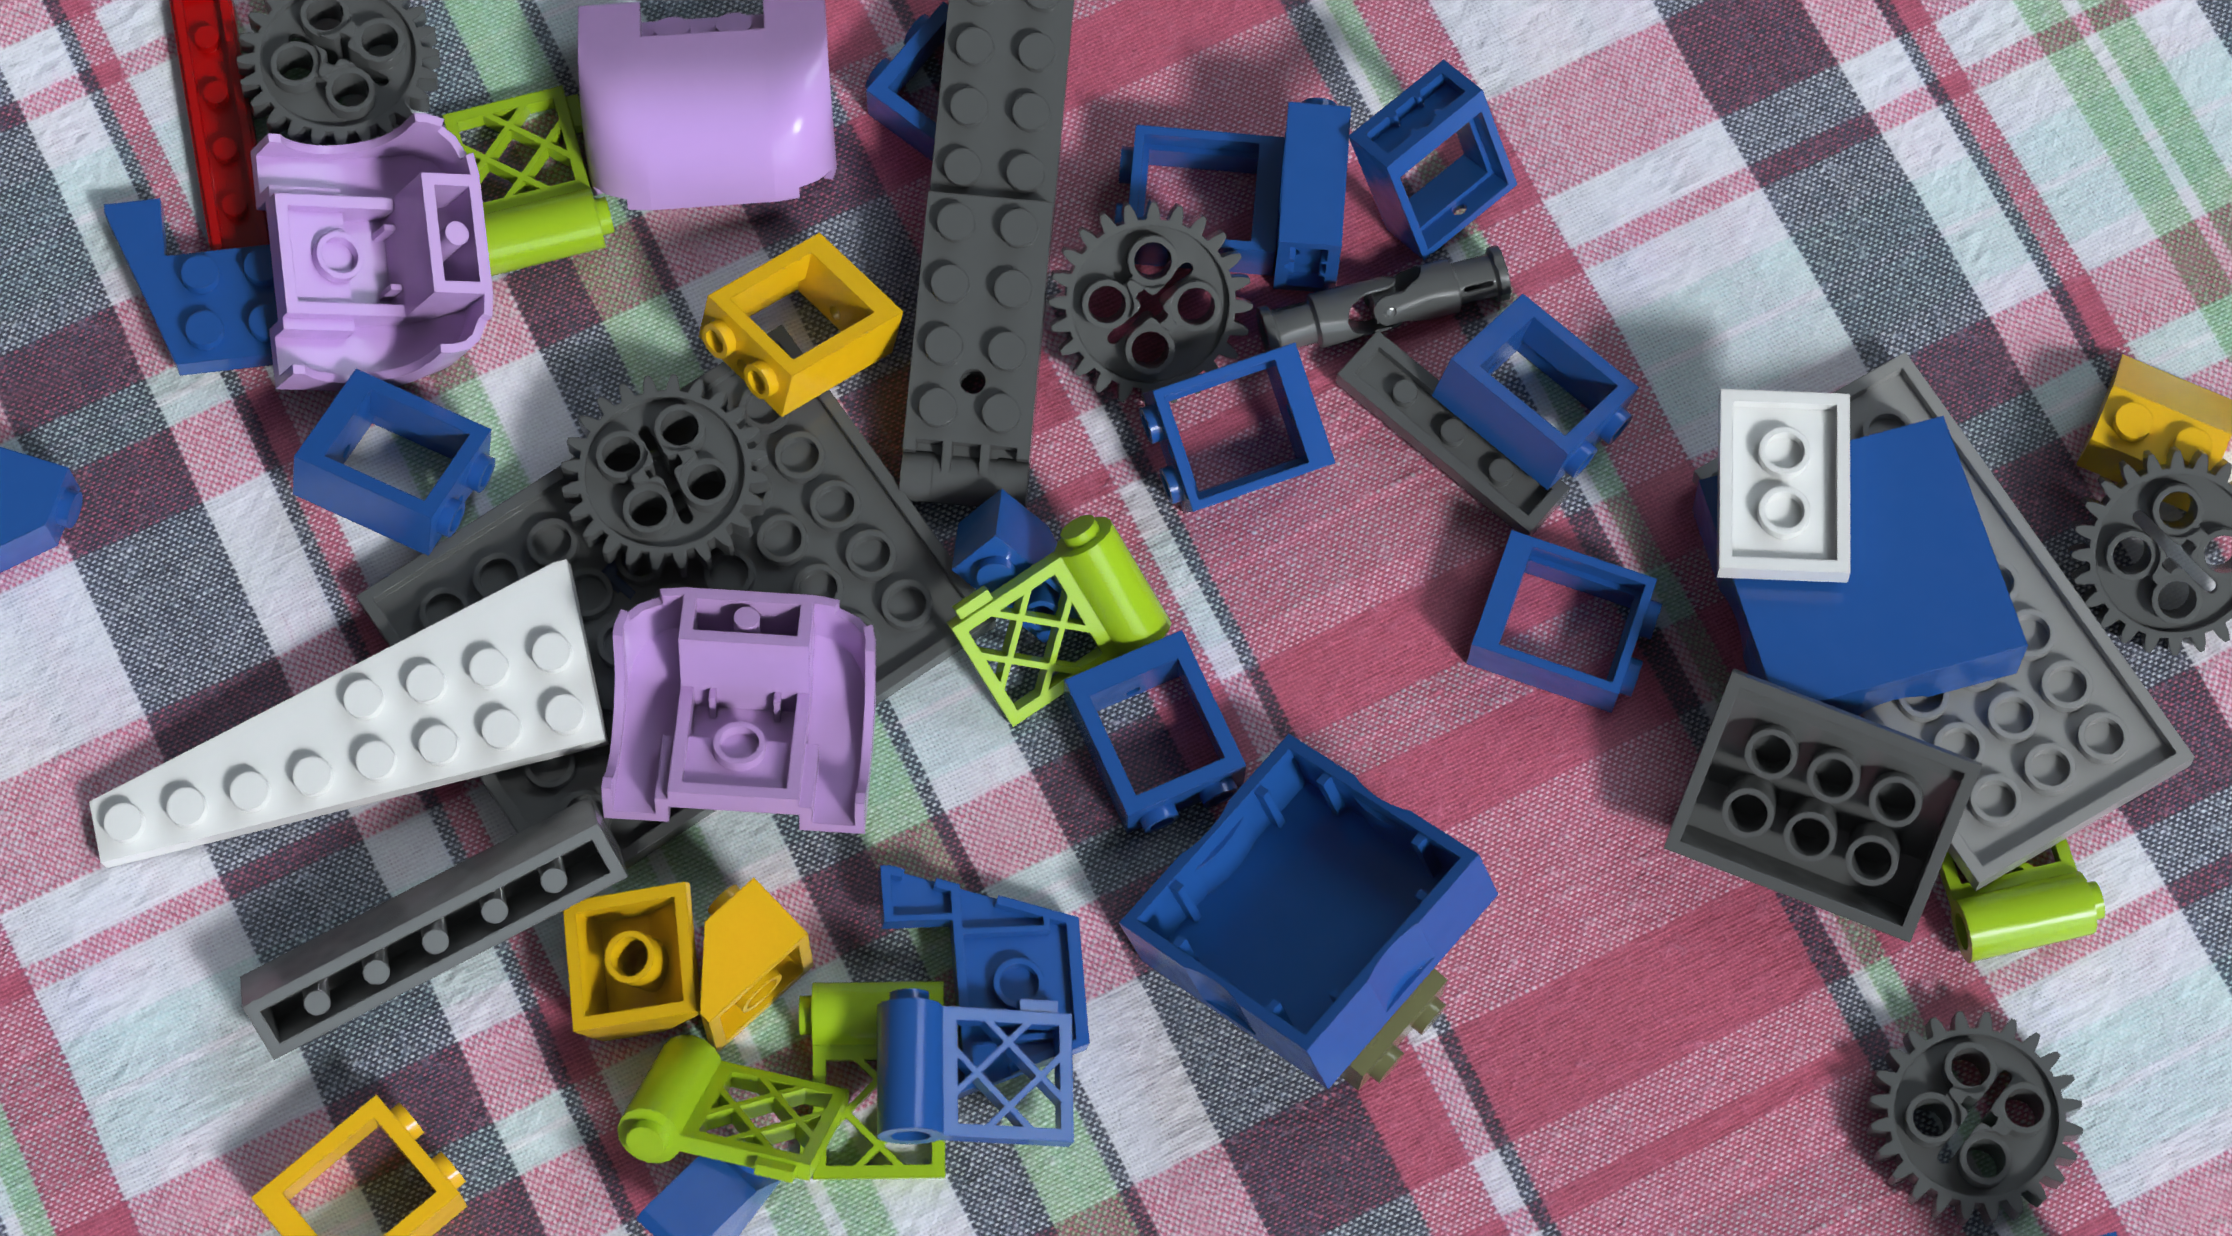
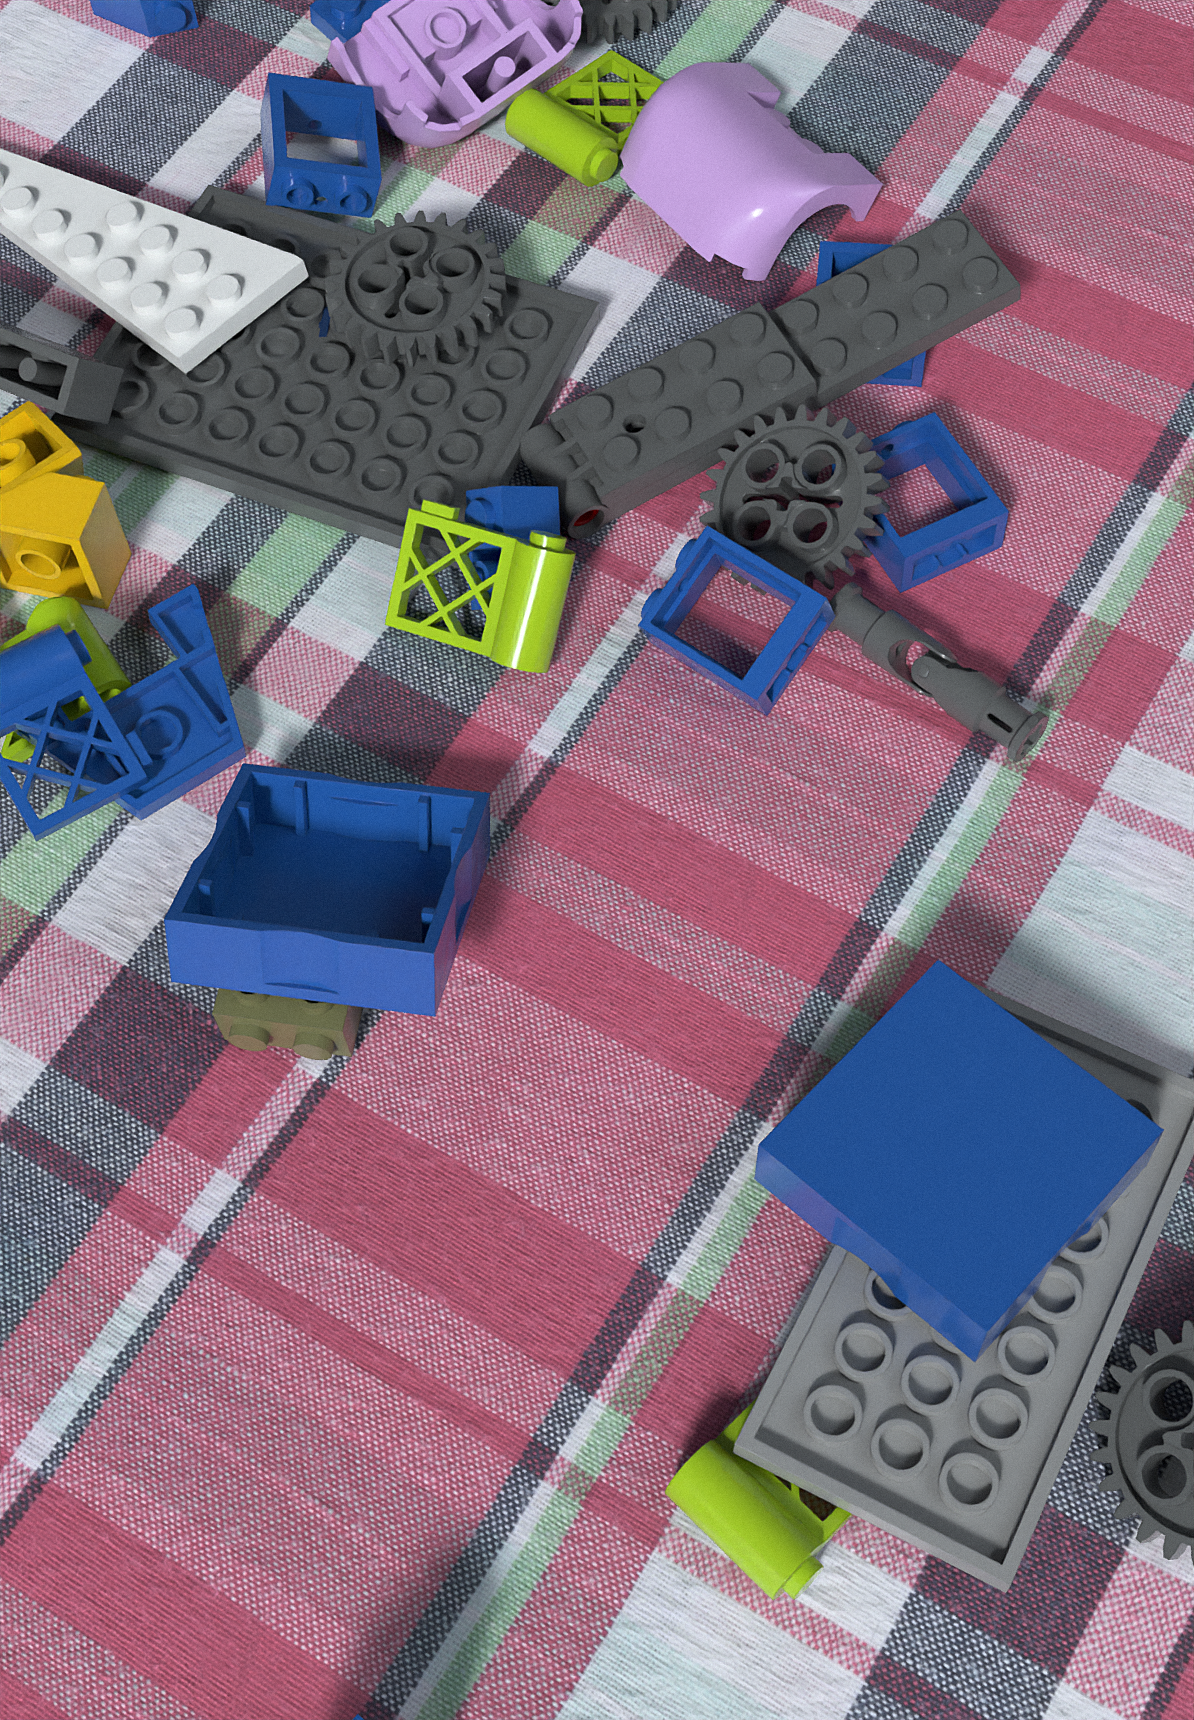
camera: 65 degrees right, 10 degrees down
(742, 708) = (255, 425): lavender piece -> none
(836, 288) = (581, 328): yellow window -> none
(1130, 676) = (466, 665): blue window -> none
(1312, 195) = (974, 555): blue window -> none
(1402, 398) = (857, 786): dark grey plate -> none
(1410, 130) = (1084, 561): blue window -> none
(1508, 421) = (954, 762): blue window -> none
(1579, 572) = (741, 898): blue window -> none
(1783, 485) = (978, 1021): white plate -> none
(1822, 805) = (703, 1251): dark grey slope -> none
(2021, 1154) = (495, 1657): dark grey gear -> none

